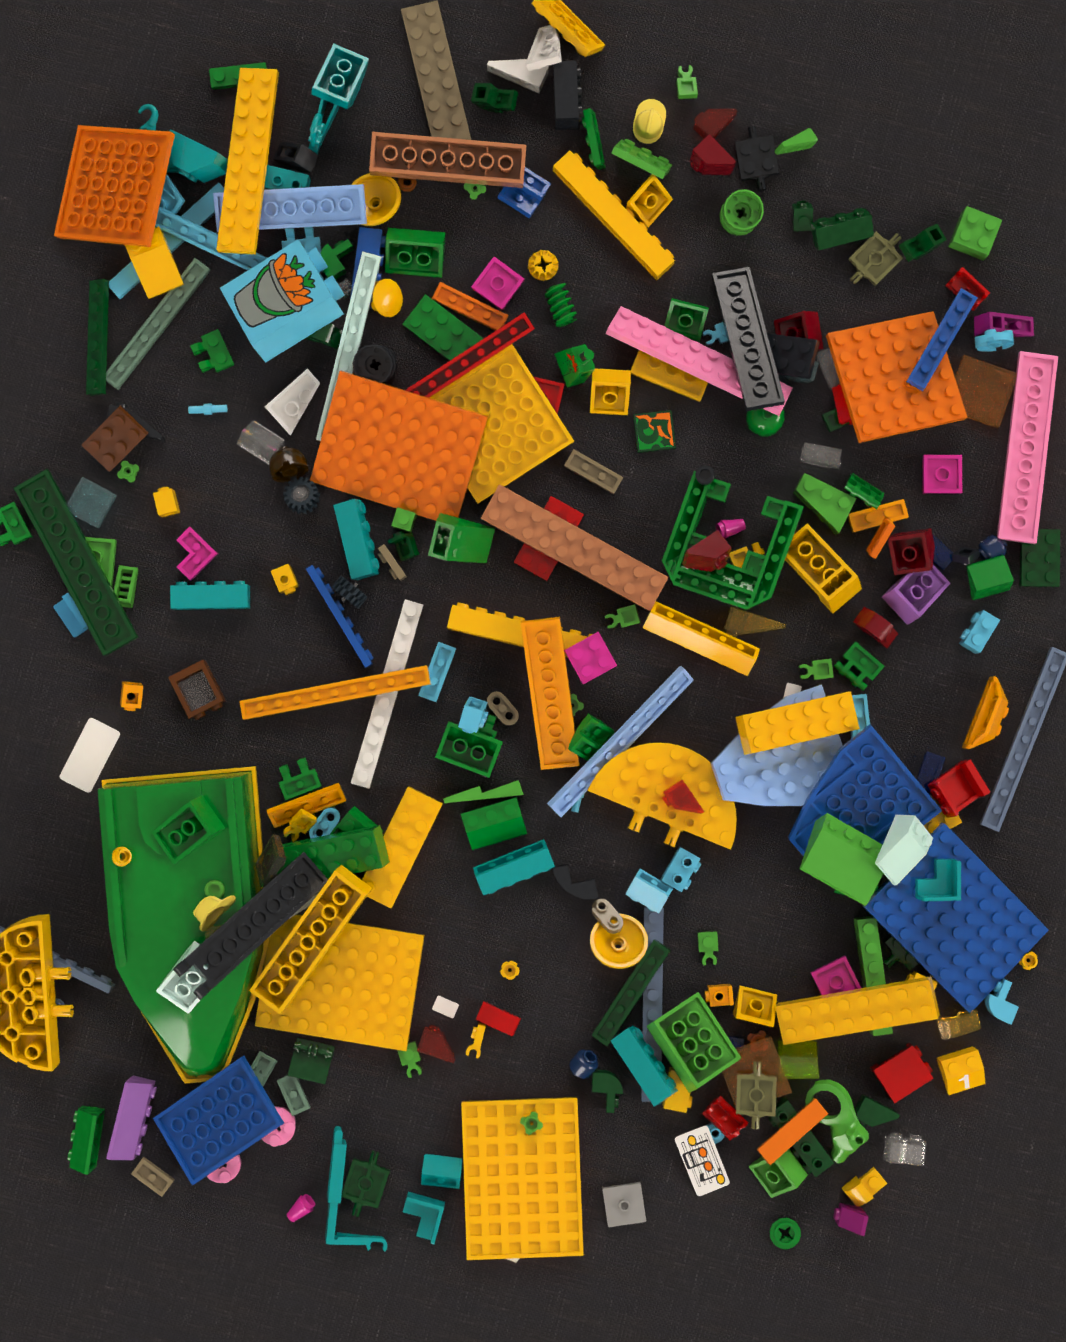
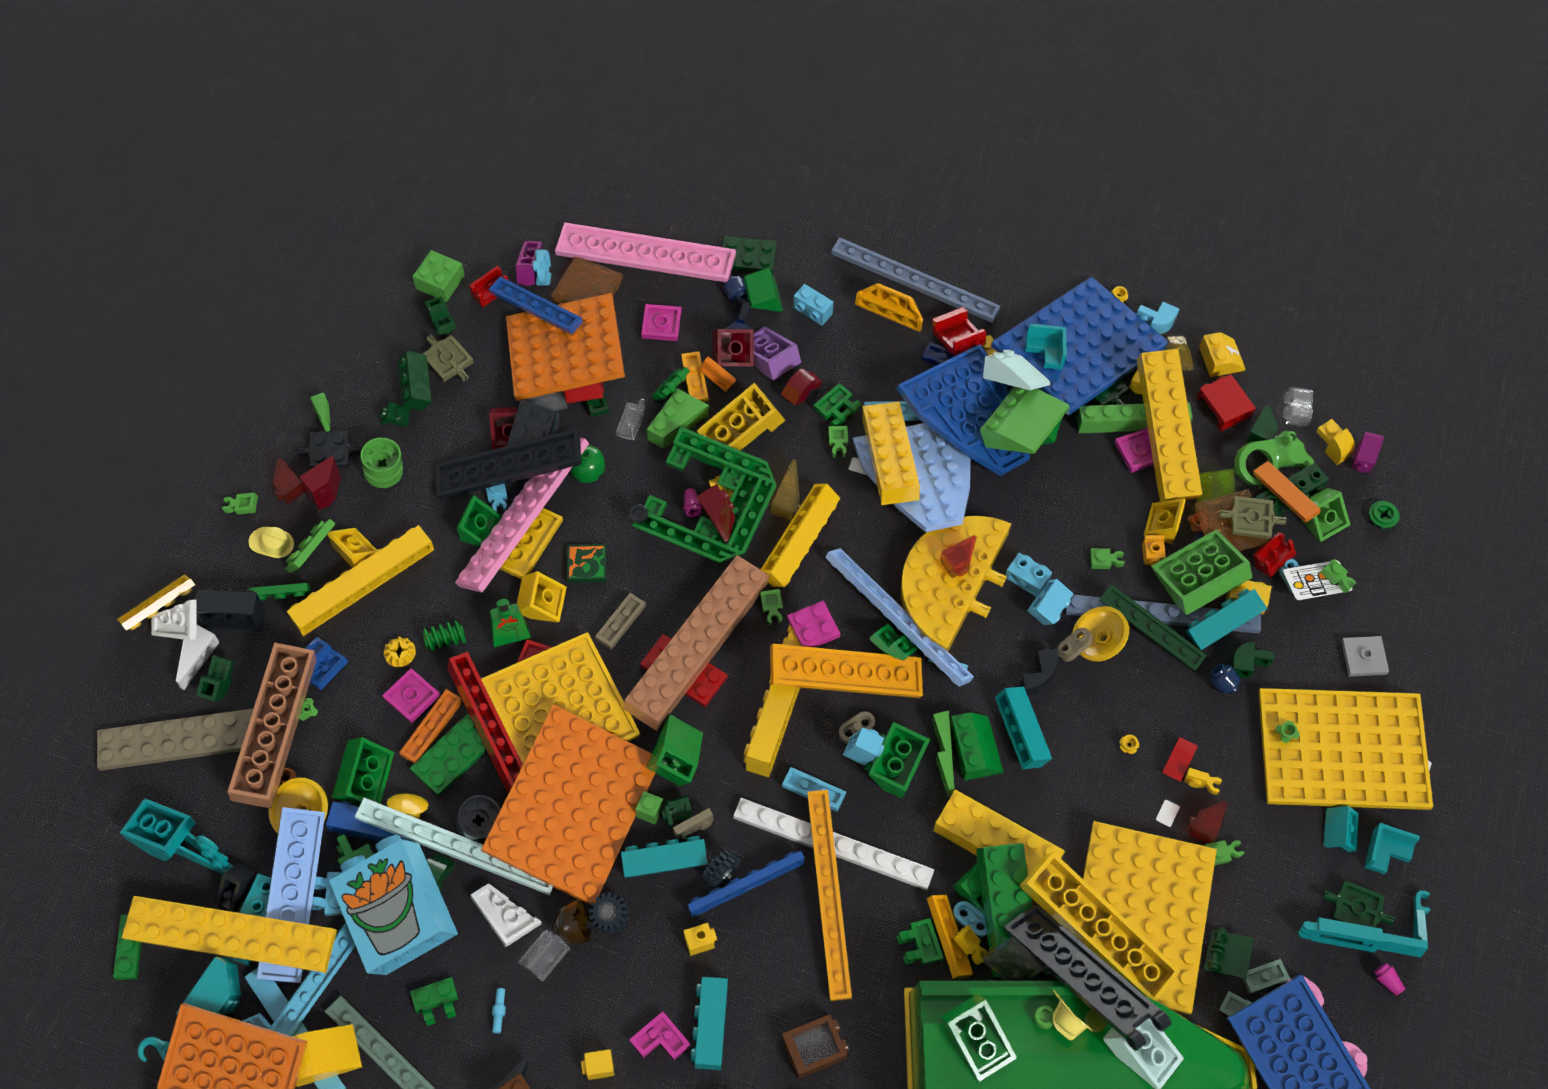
camera: 85 degrees left, 25 degrees down
(710, 1179) = (1337, 574): none -> bright green plate

